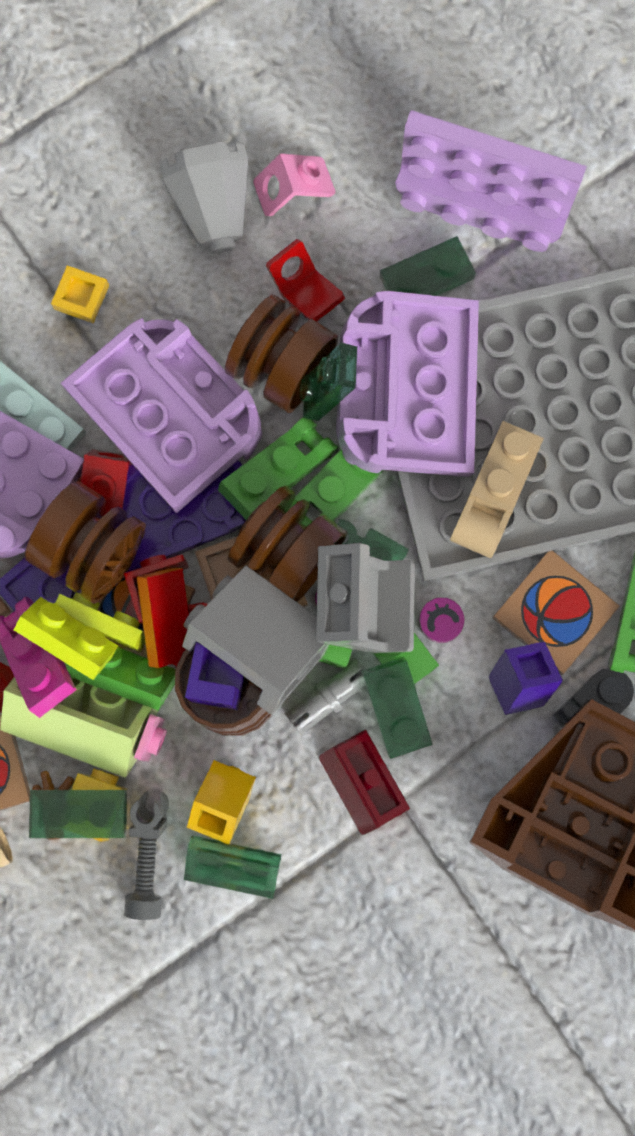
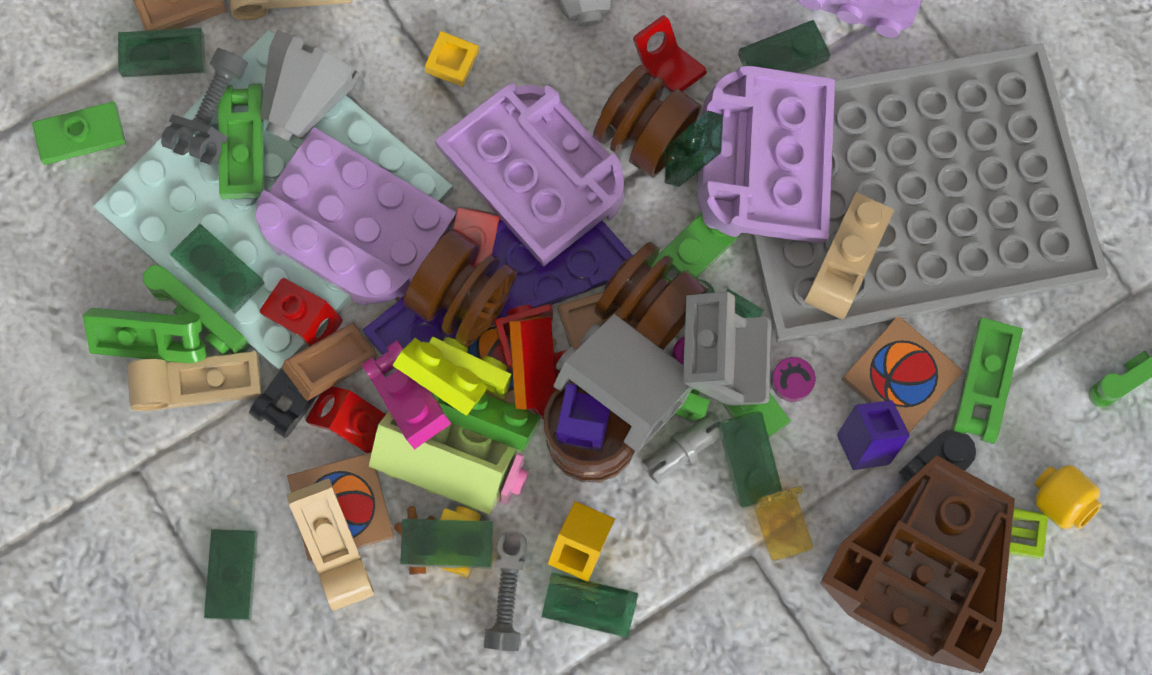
camera: 10 degrees left, 5 degrees down
(276, 466) = (639, 226): bright green plate -> none
(364, 782) = (715, 530): dark red slope -> none
(433, 776) = (783, 524): none -> clear yellow bracket

